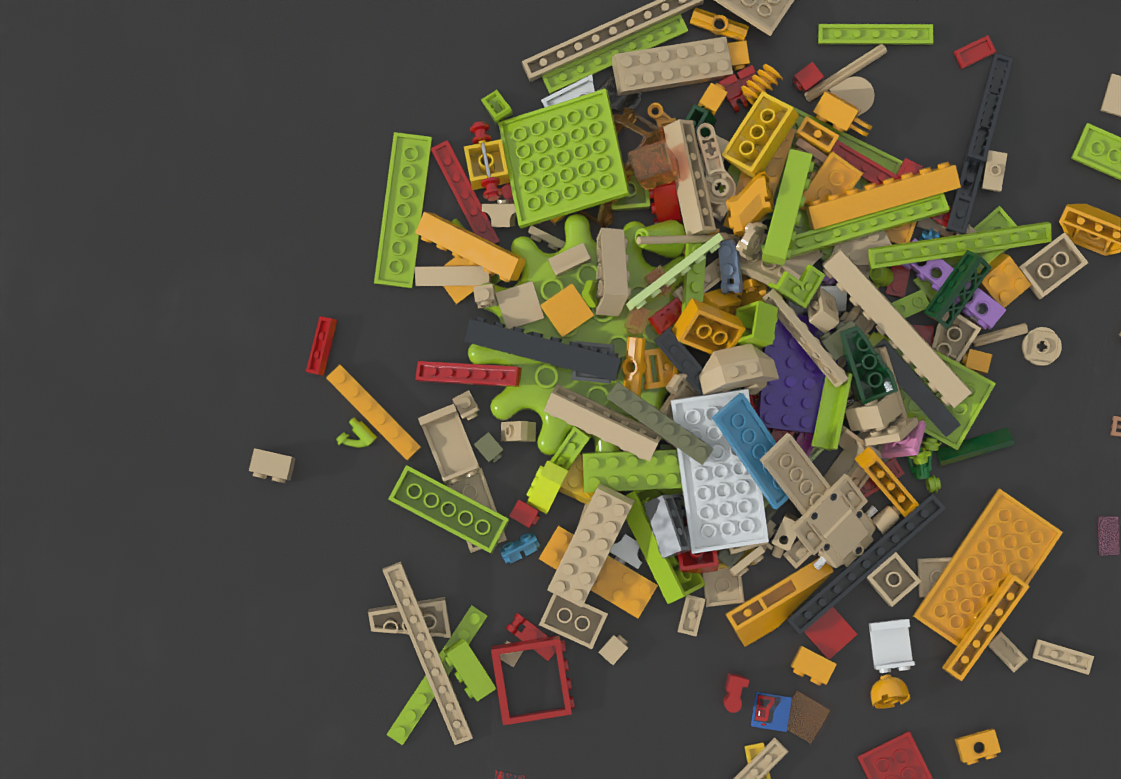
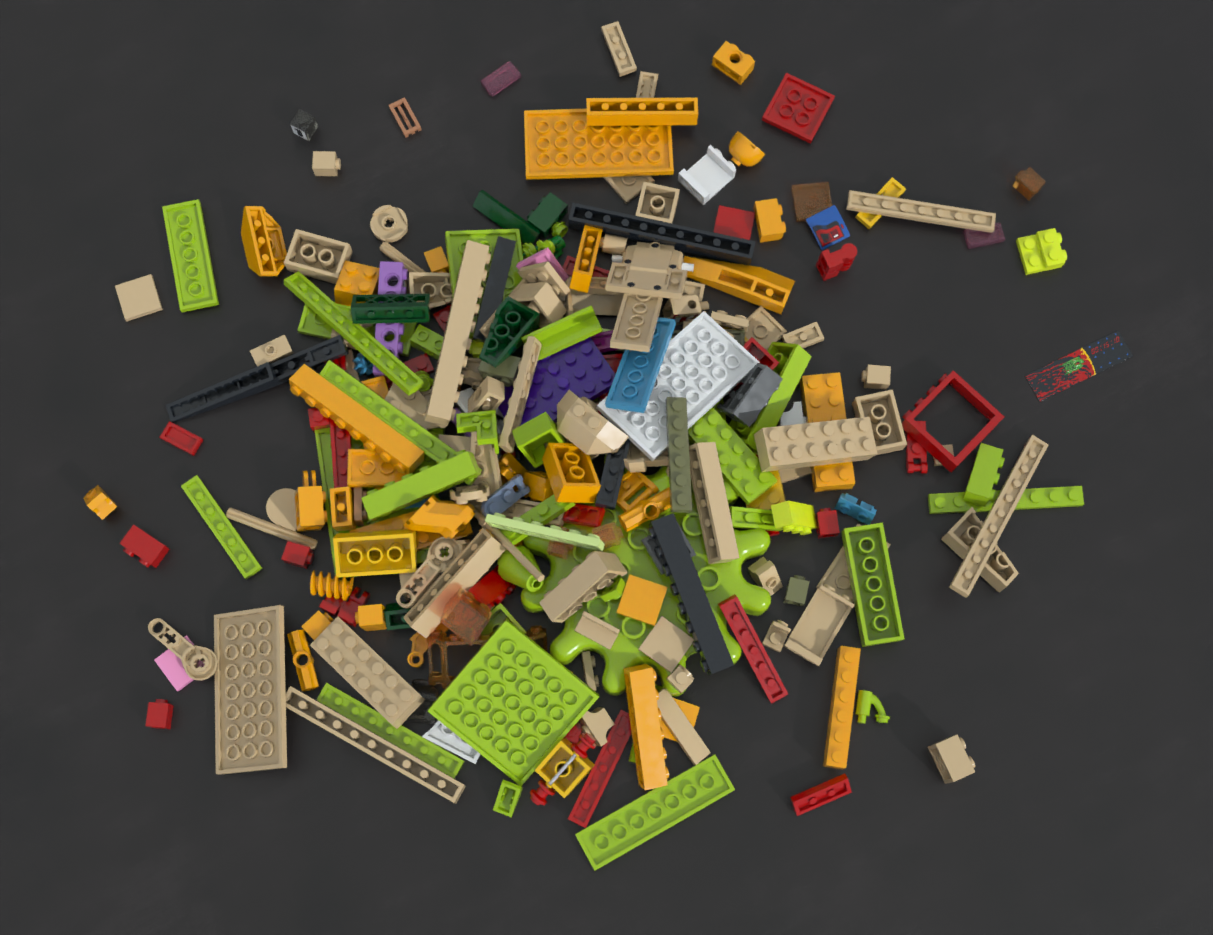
camera: 130 degrees left, 10 degrees down
(953, 482) = (548, 212): none -> dark green brick

